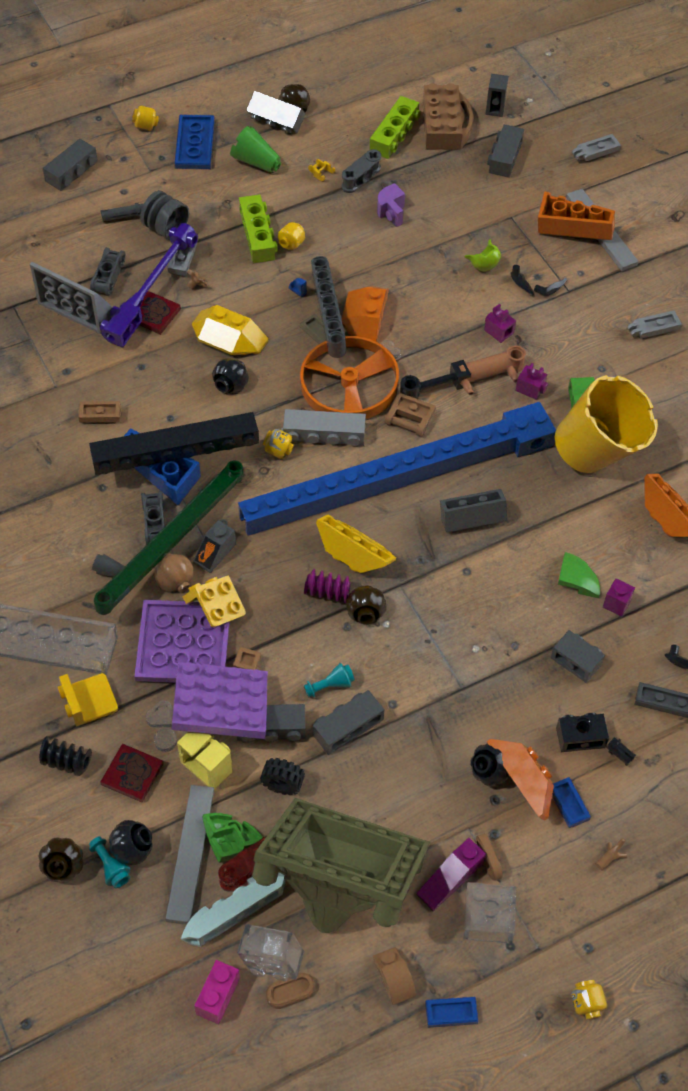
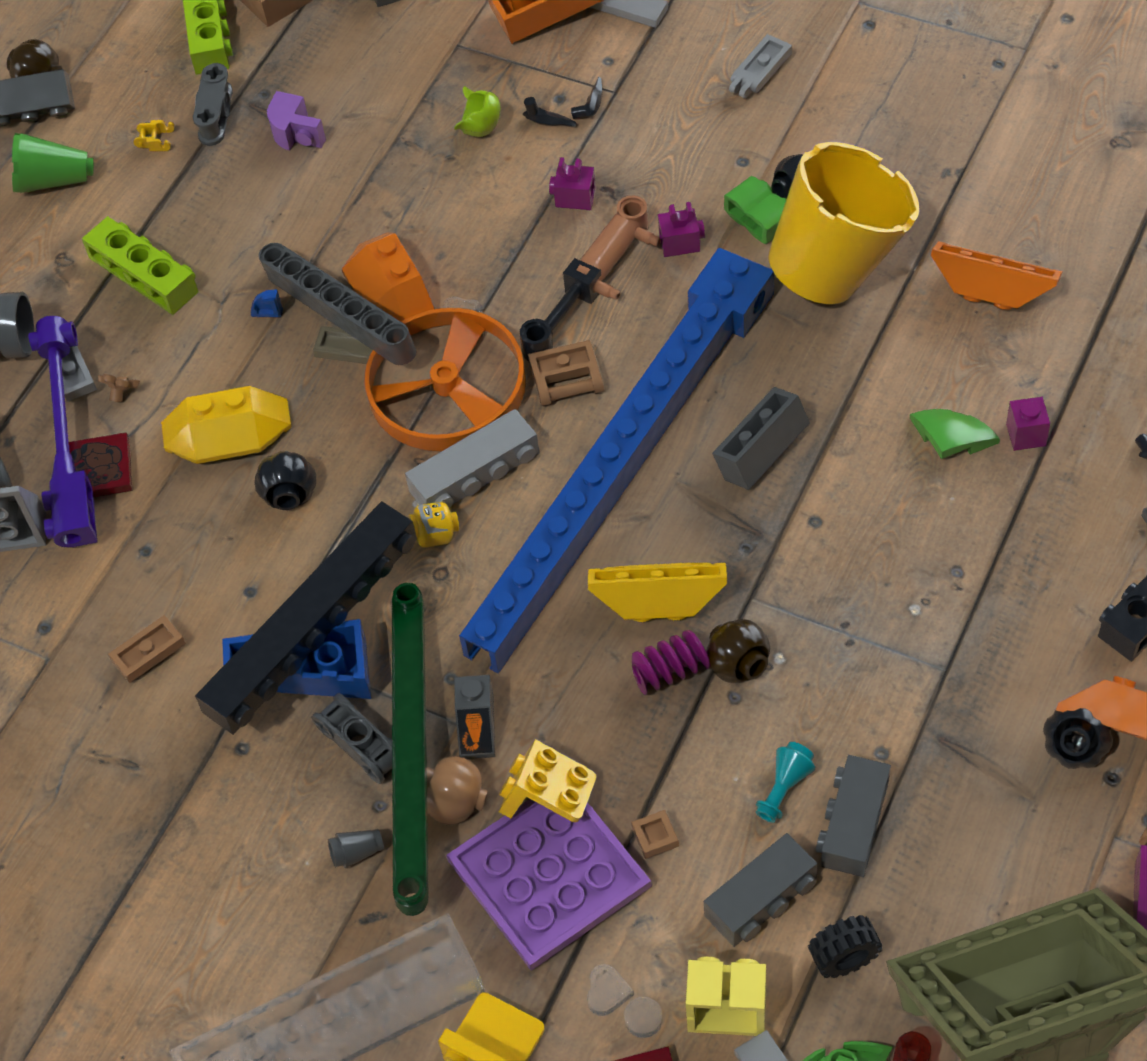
camera: 30 degrees left, 0 degrees up
(220, 700) = (683, 908): medium lavender plate -> none
(291, 236) = (198, 245): yellow head -> none
(577, 656) = (1047, 529): dark grey brick -> none

